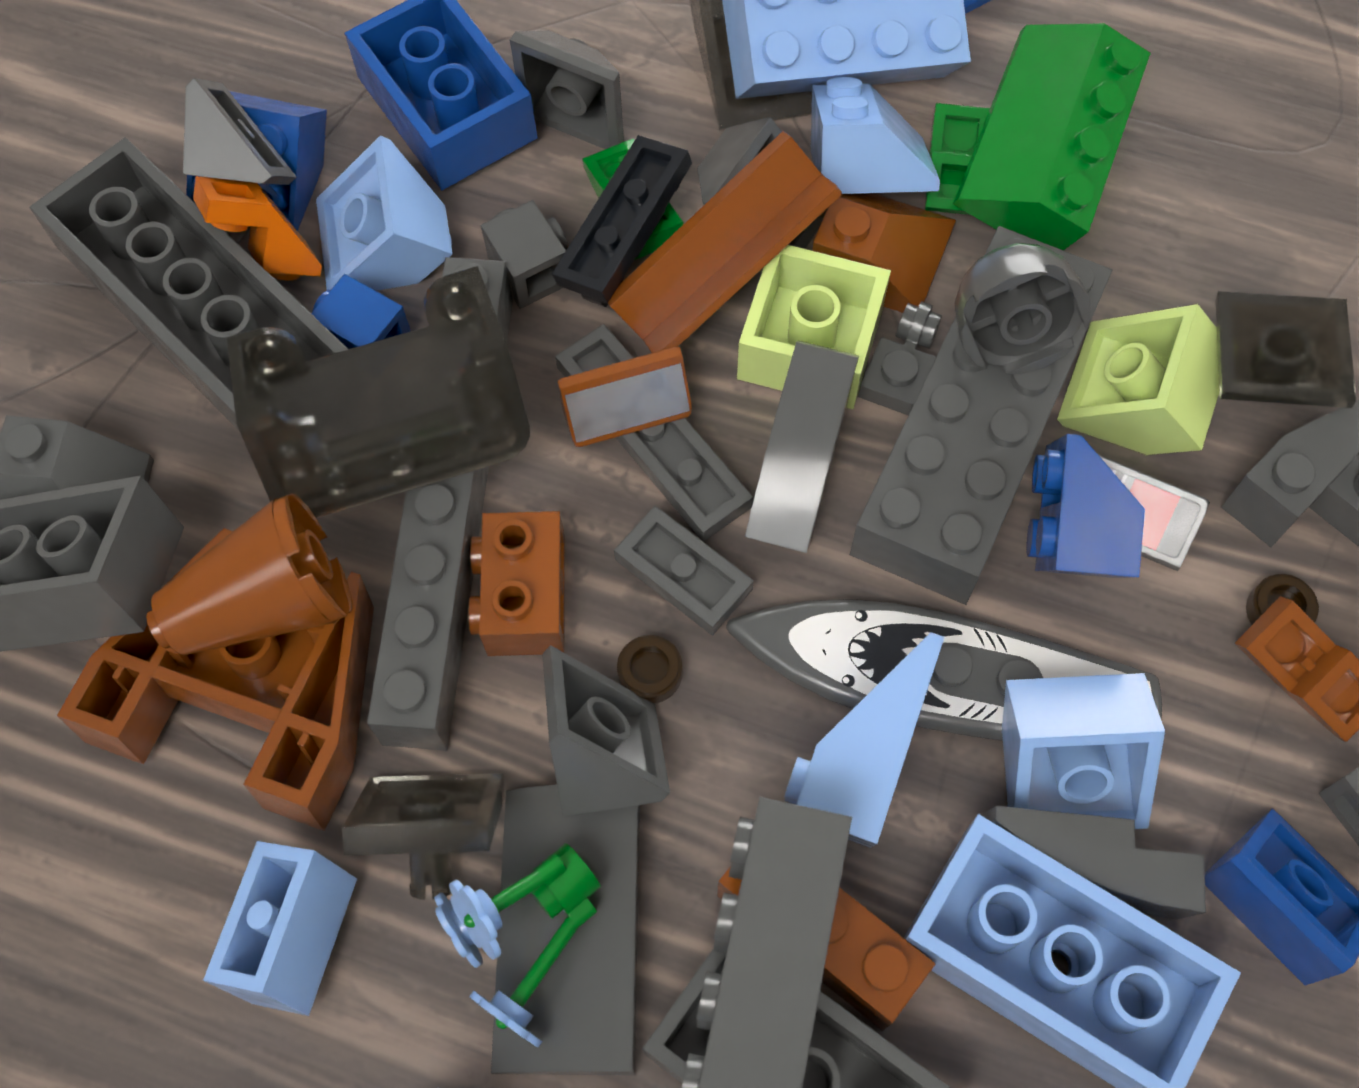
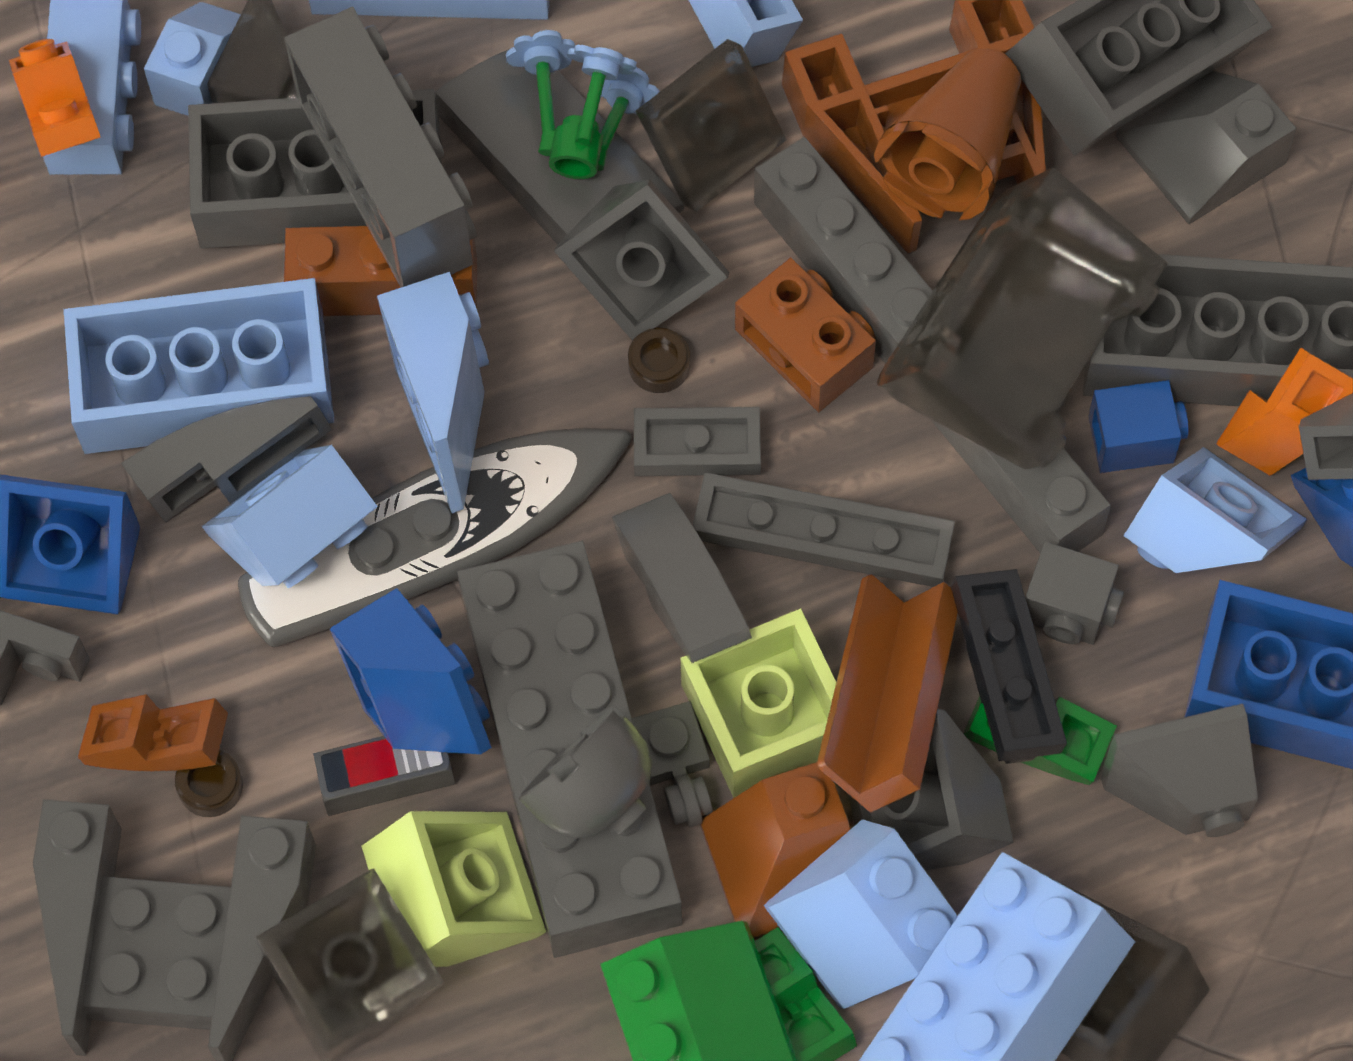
camera: 140 degrees right, 0 degrees up
(625, 397) = (856, 514): flat silver slope -> none

